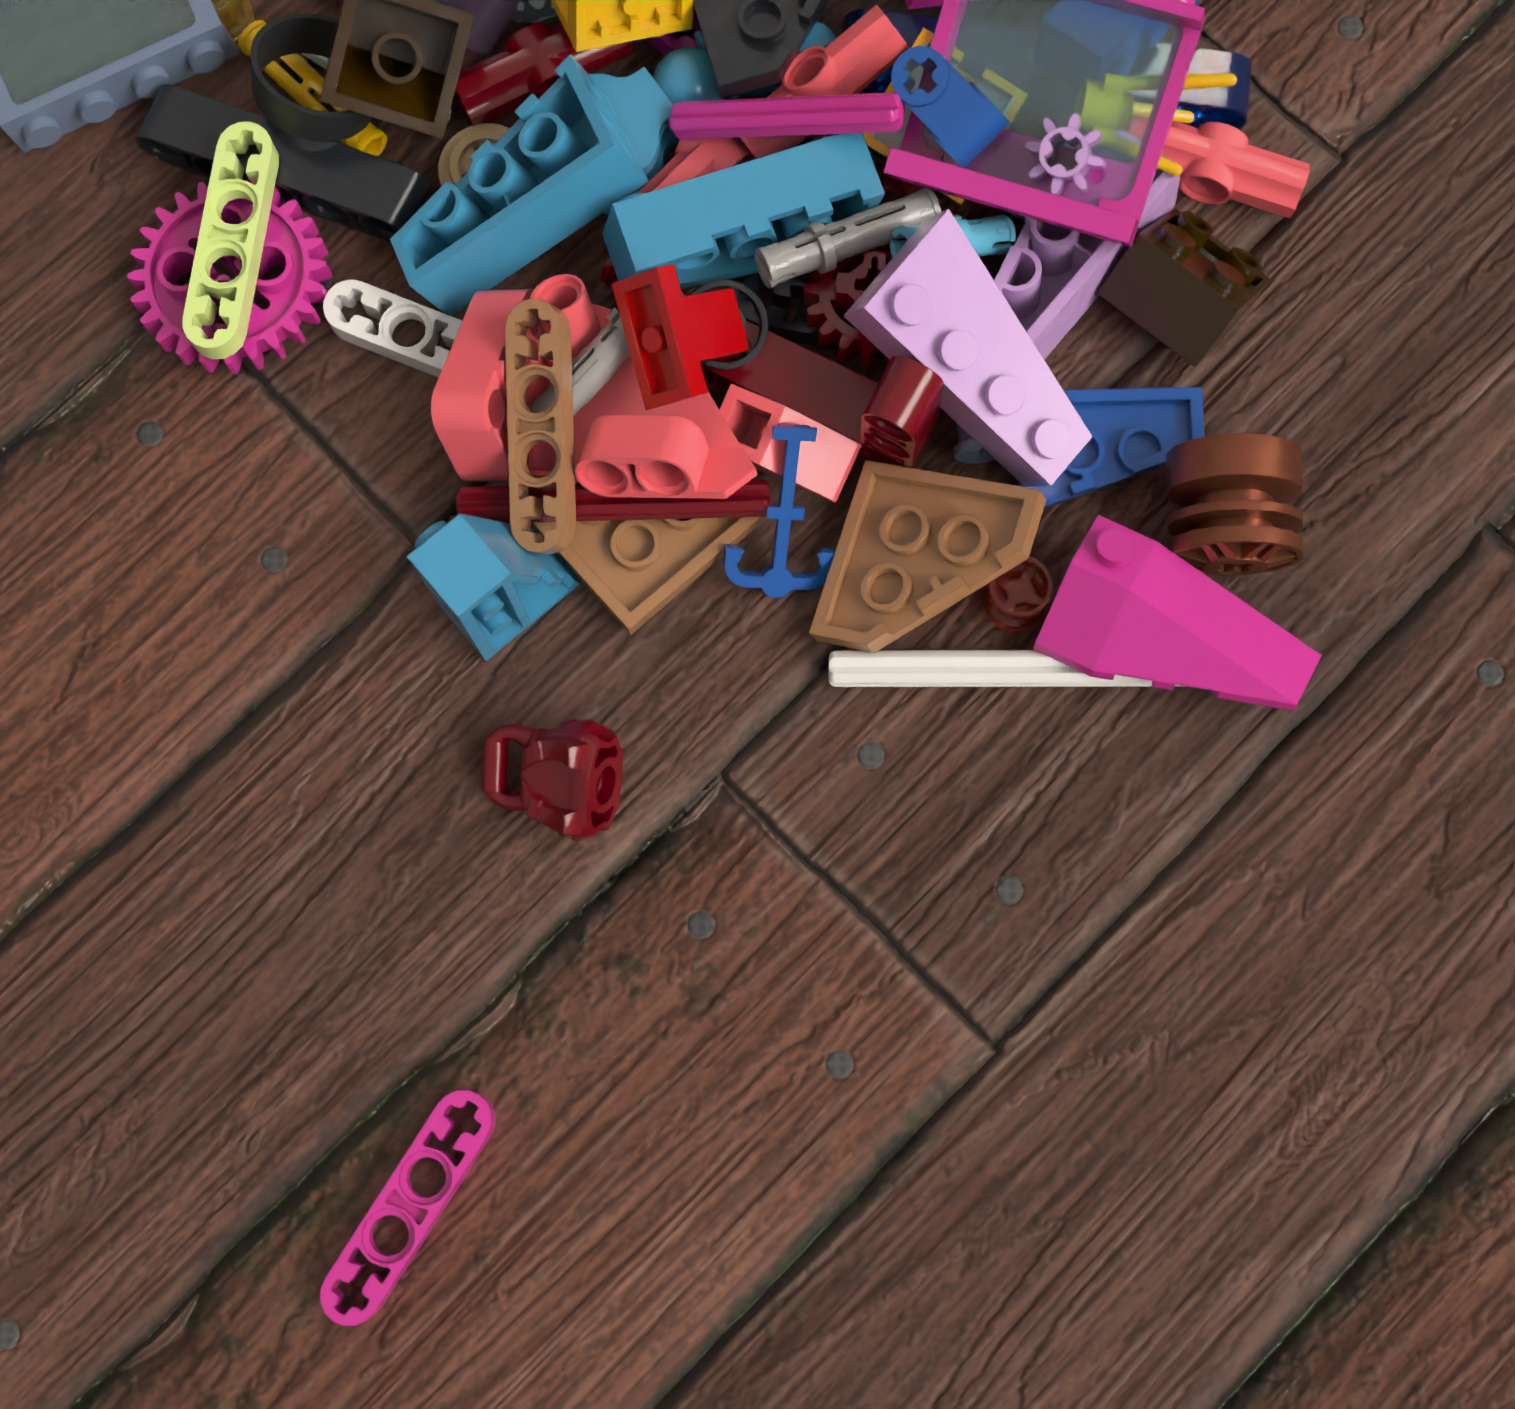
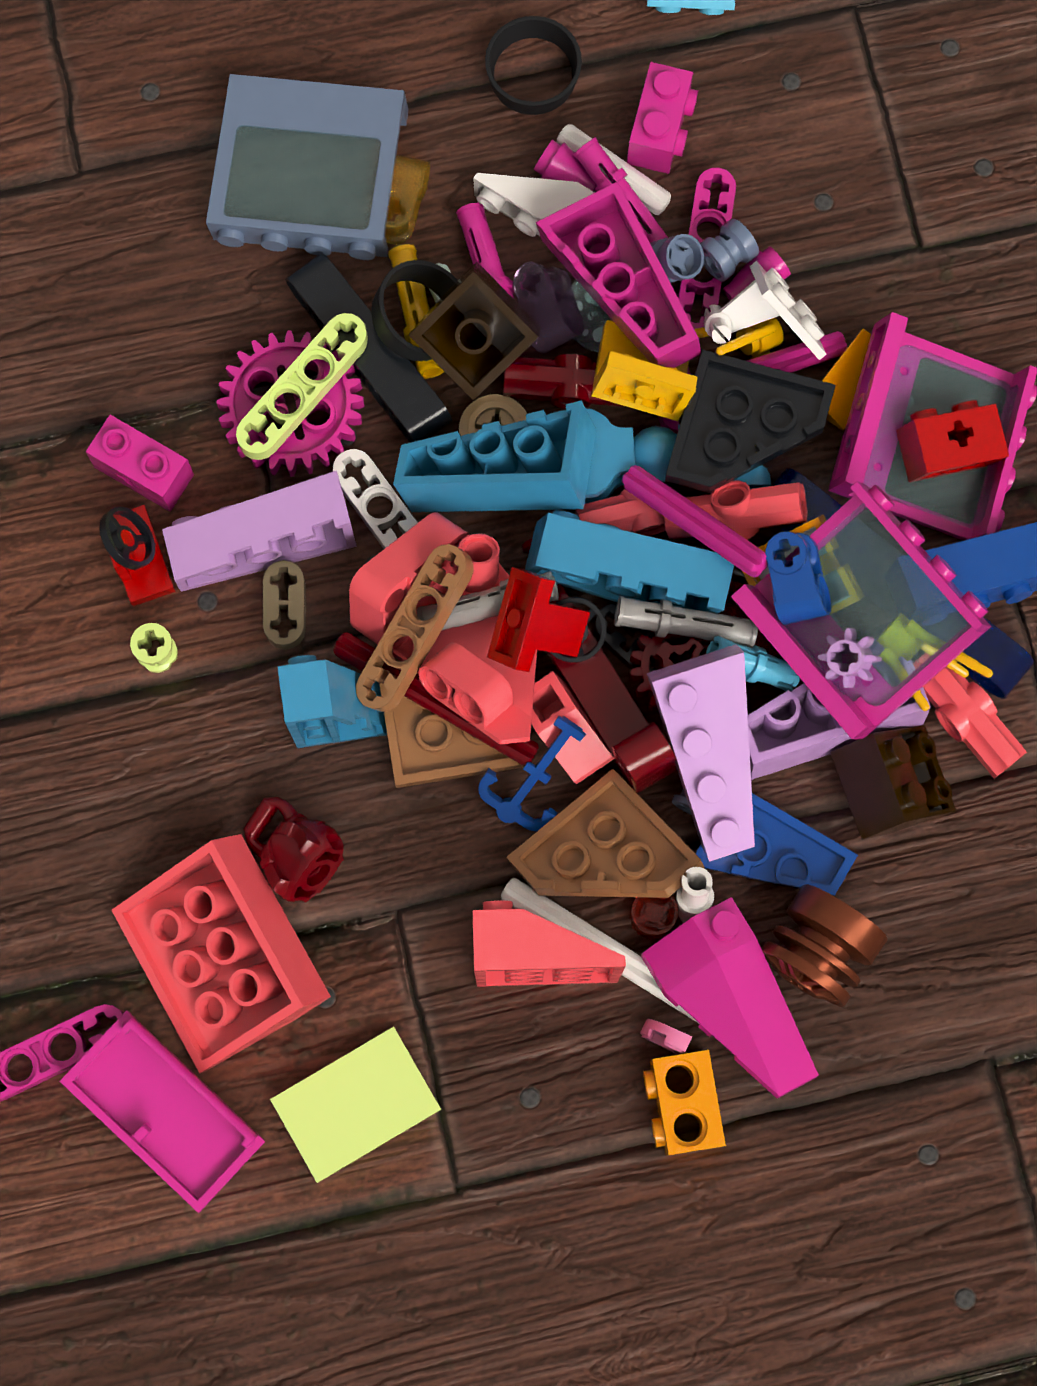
camera: 30 degrees right, 0 degrees up
(92, 444) = (140, 463): none -> dark pink brick
(153, 550) = (136, 553): none -> piece
(226, 651) = (142, 641): none -> yellowish green bush
(290, 435) = (256, 533): none -> lavender wedge
(355, 514) = (273, 604): none -> dark tan beam
(544, 948) = (220, 952): none -> coral slope
(595, 1176) = (162, 1111): none -> dark pink container
(816, 1024) = (355, 1104): none -> yellowish green tile
(924, 700) = (526, 949): none -> coral slope
(1056, 535) = (695, 894): none -> white pin
(1121, 721) = (665, 1036): none -> bright pink tile
(1206, 769) = (698, 1101): none -> light orange brick

